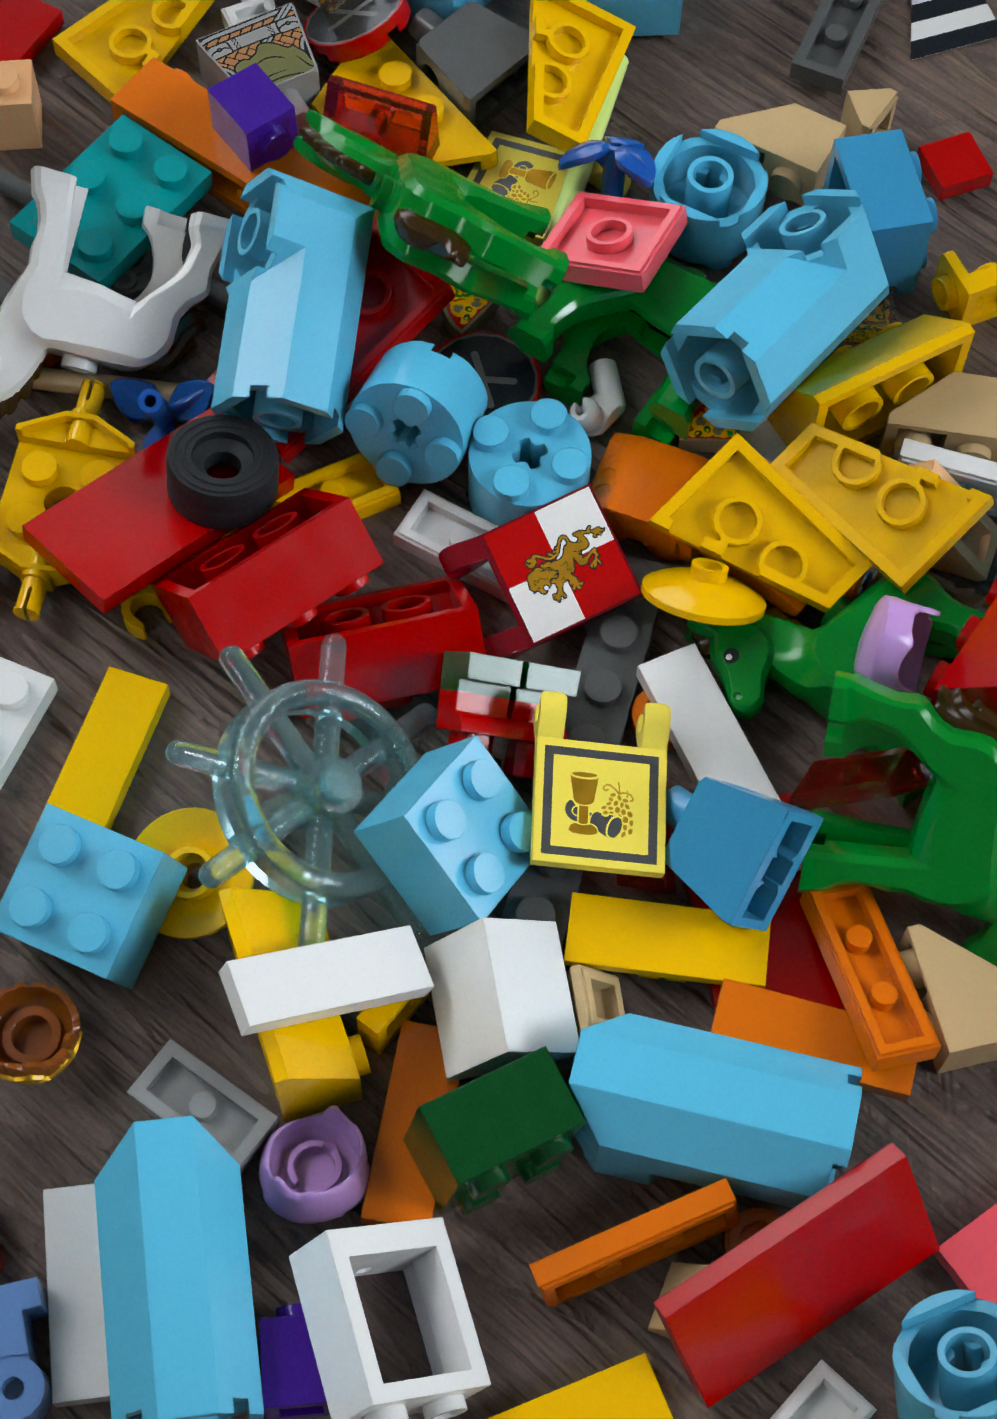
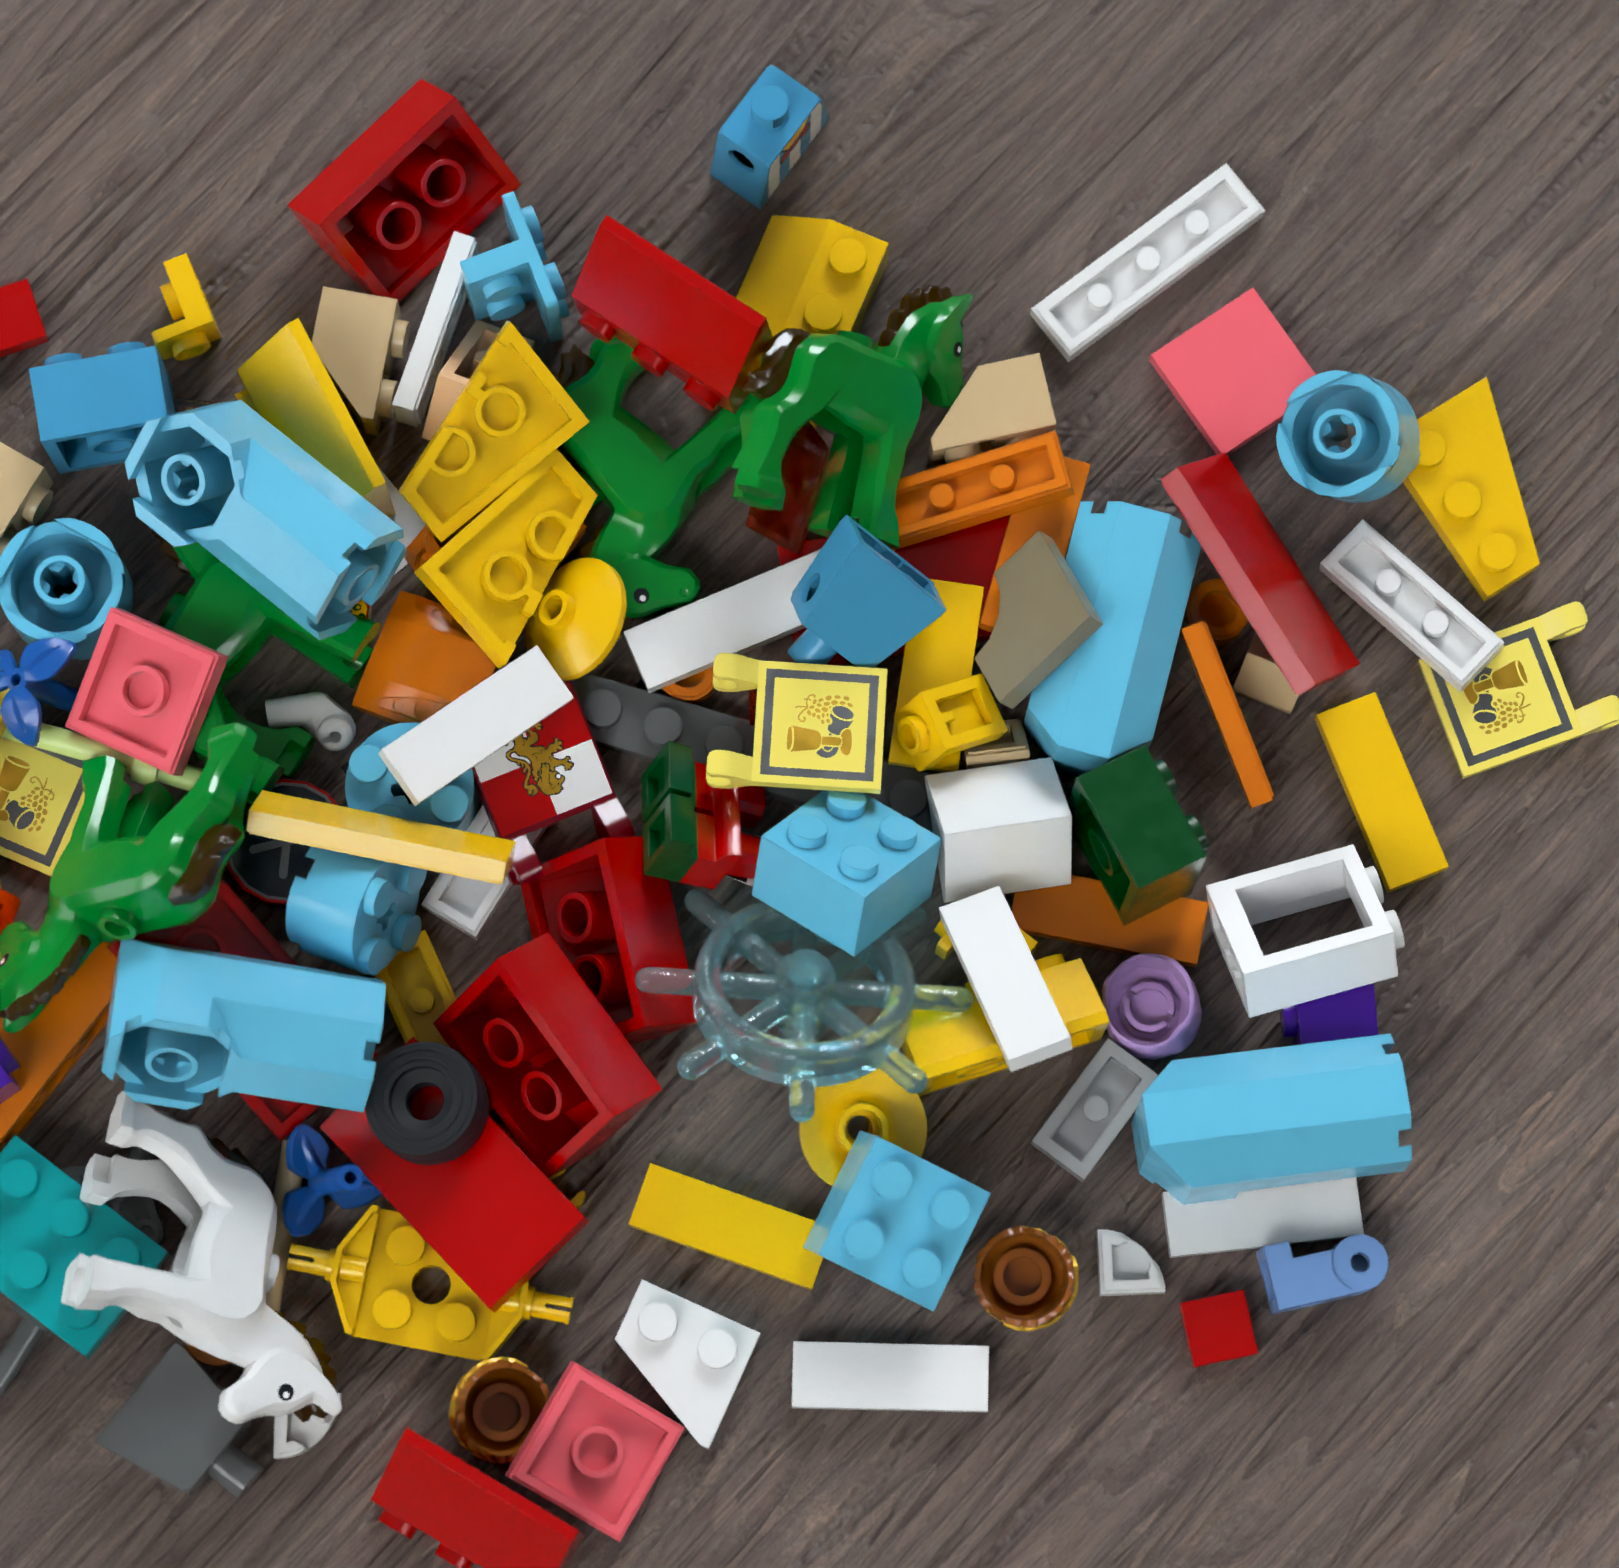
camera: 90 degrees left, 15 degrees up
(37, 1145) = (1125, 1266): none -> white tile
(471, 412) = (381, 837): none -> yellow tile
(587, 496) = (475, 725): none -> white tile
(614, 941) = (948, 721): none -> yellow bracket
(722, 1020) = (1038, 622): none -> dark tan tile
(894, 643) = (669, 439): lavender hair -> none

